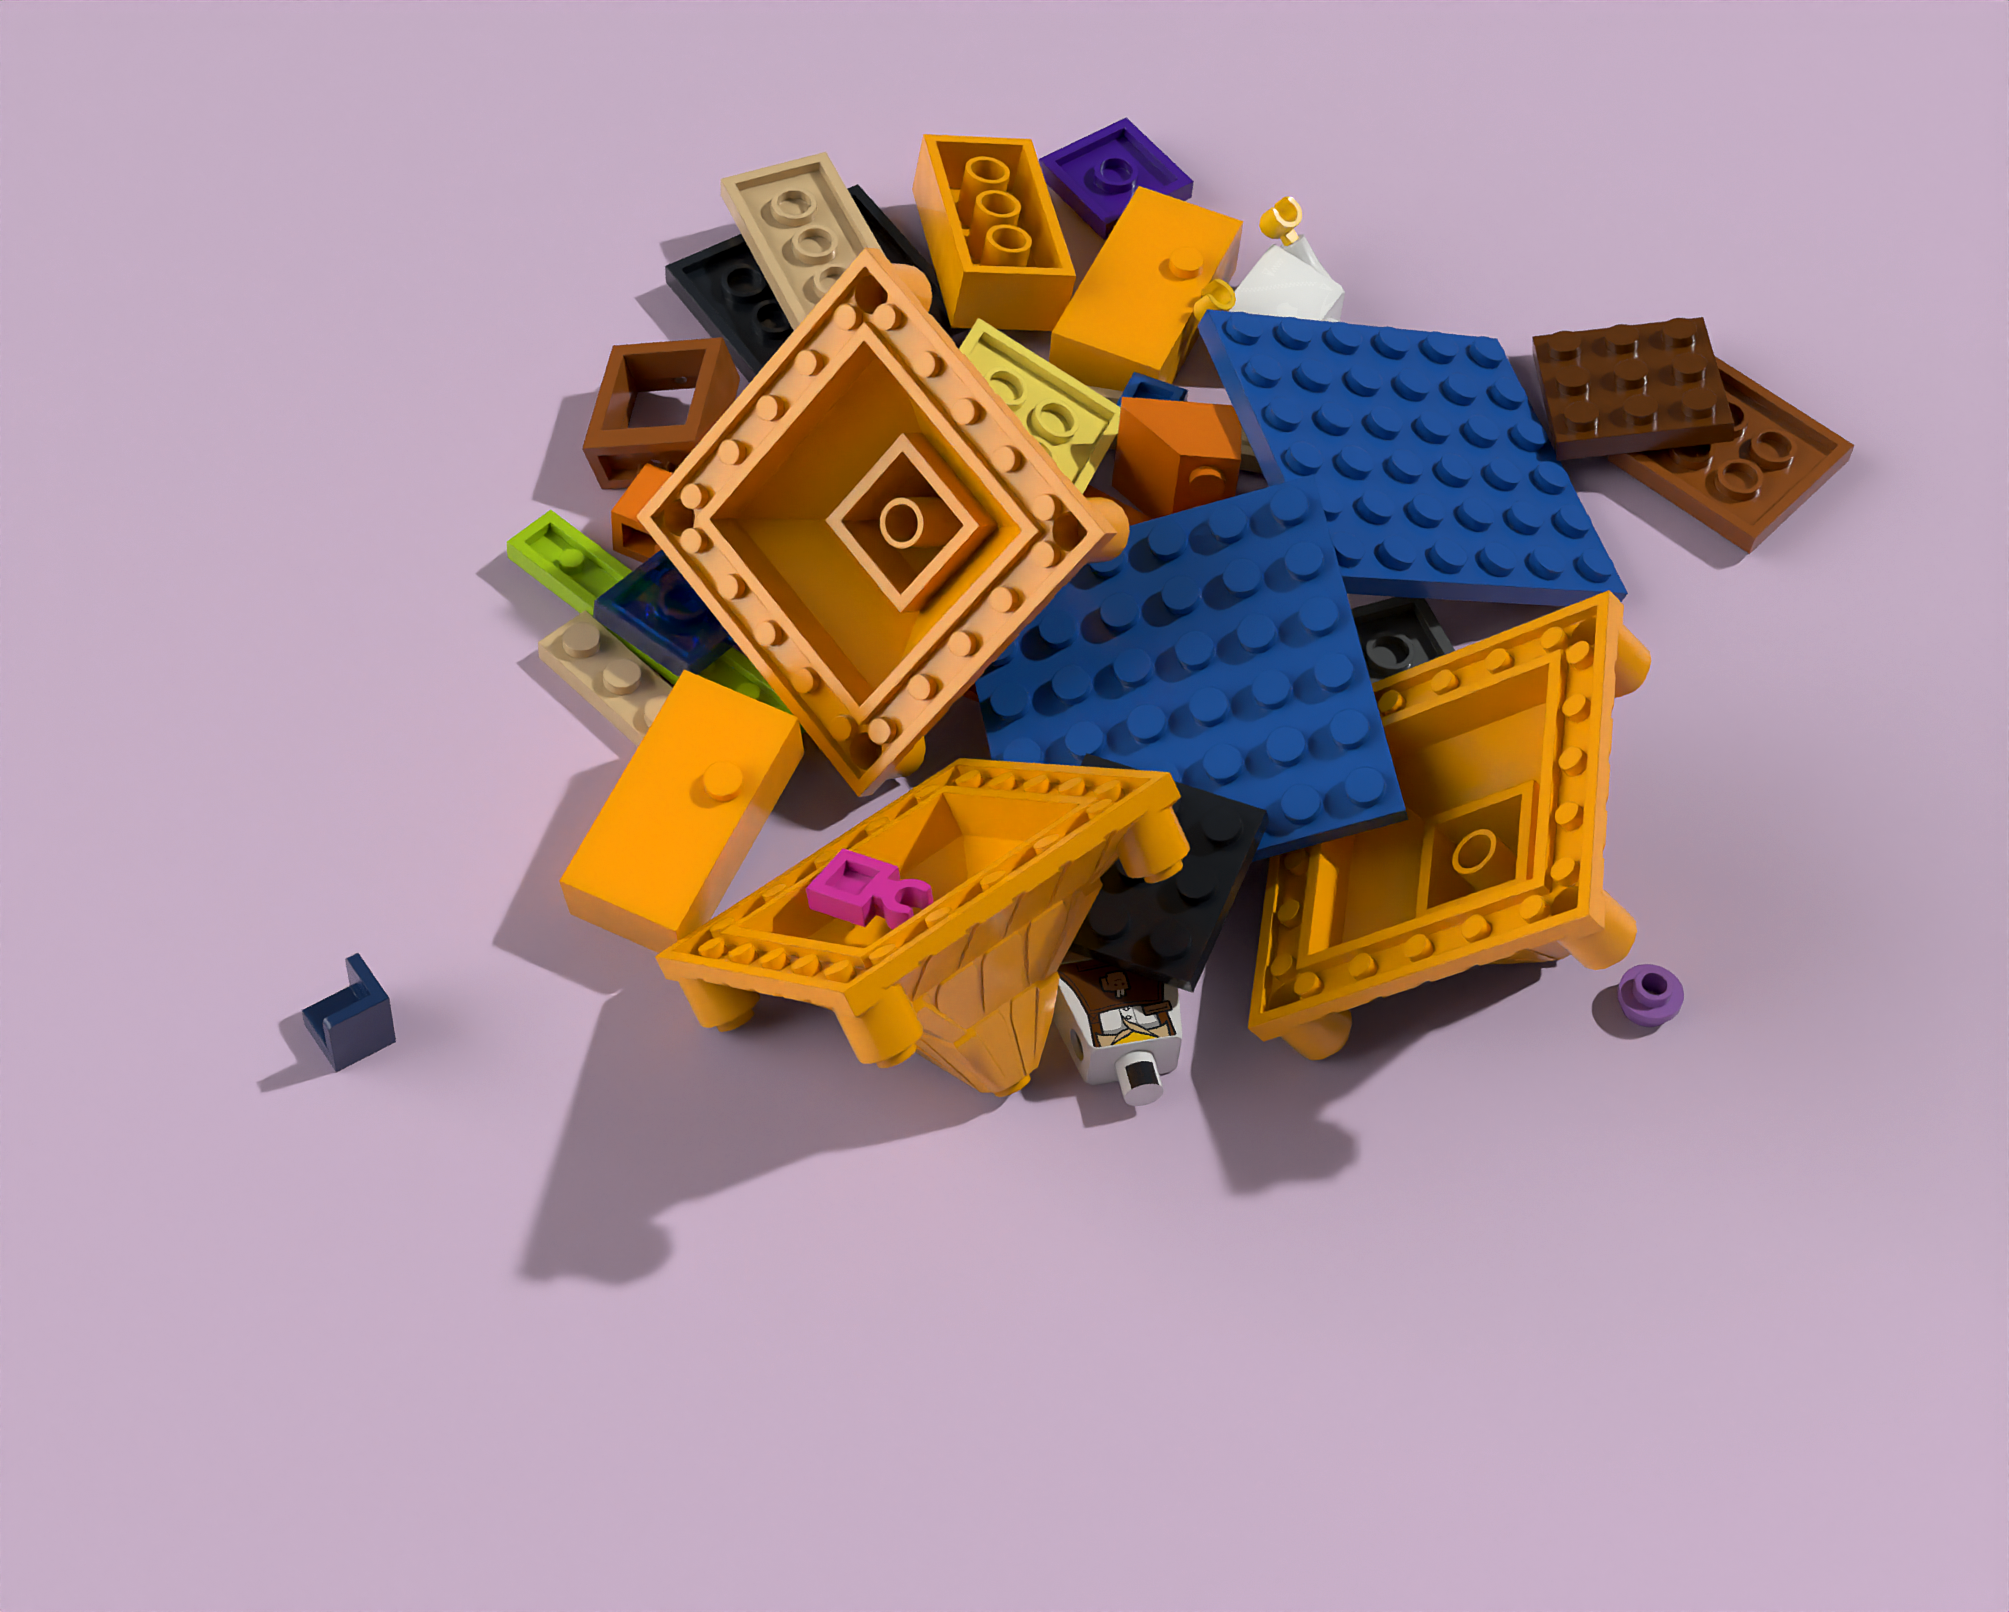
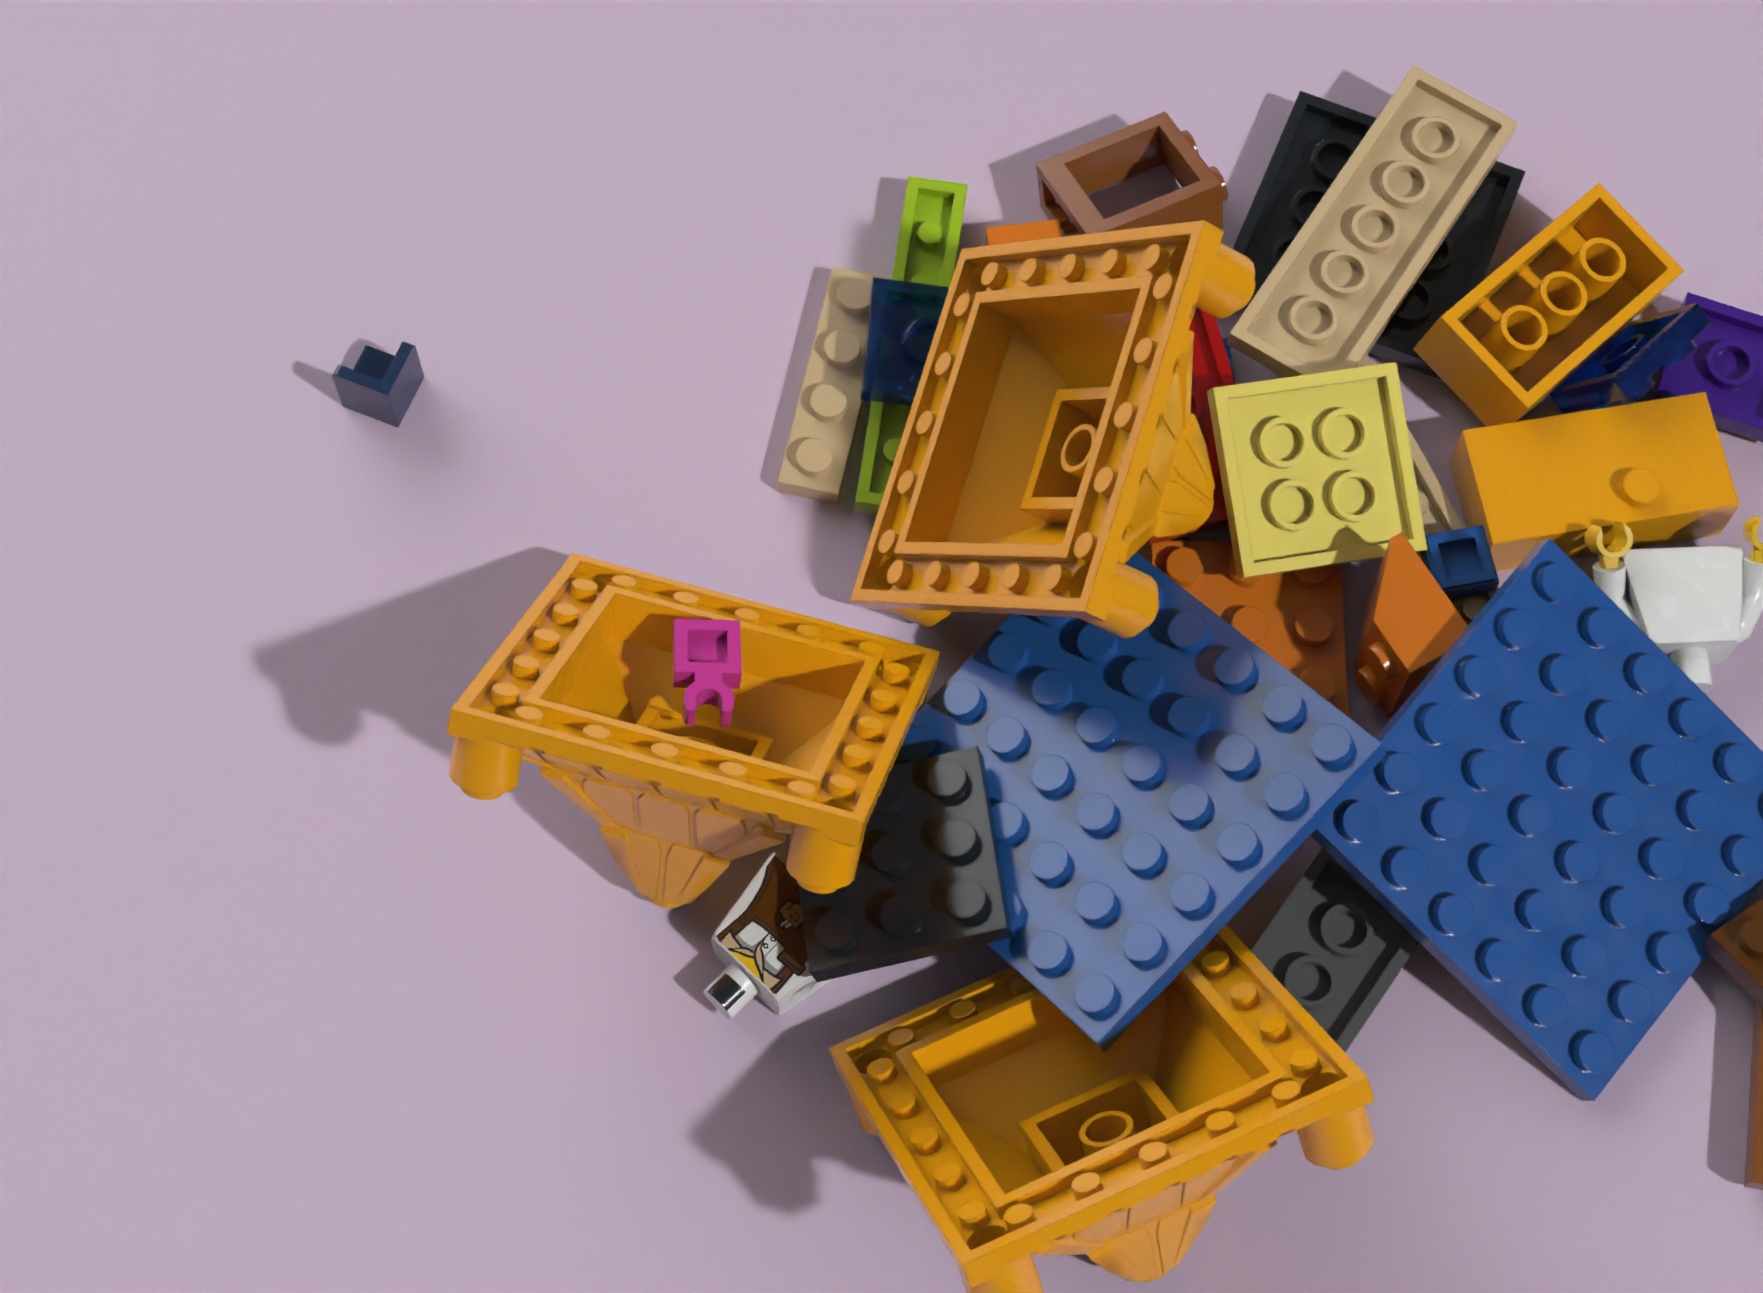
camera: 60 degrees right, 15 degrees up
(683, 814) = (720, 483): light orange brick -> none
(1083, 199) = (1630, 358): none -> clear blue plate

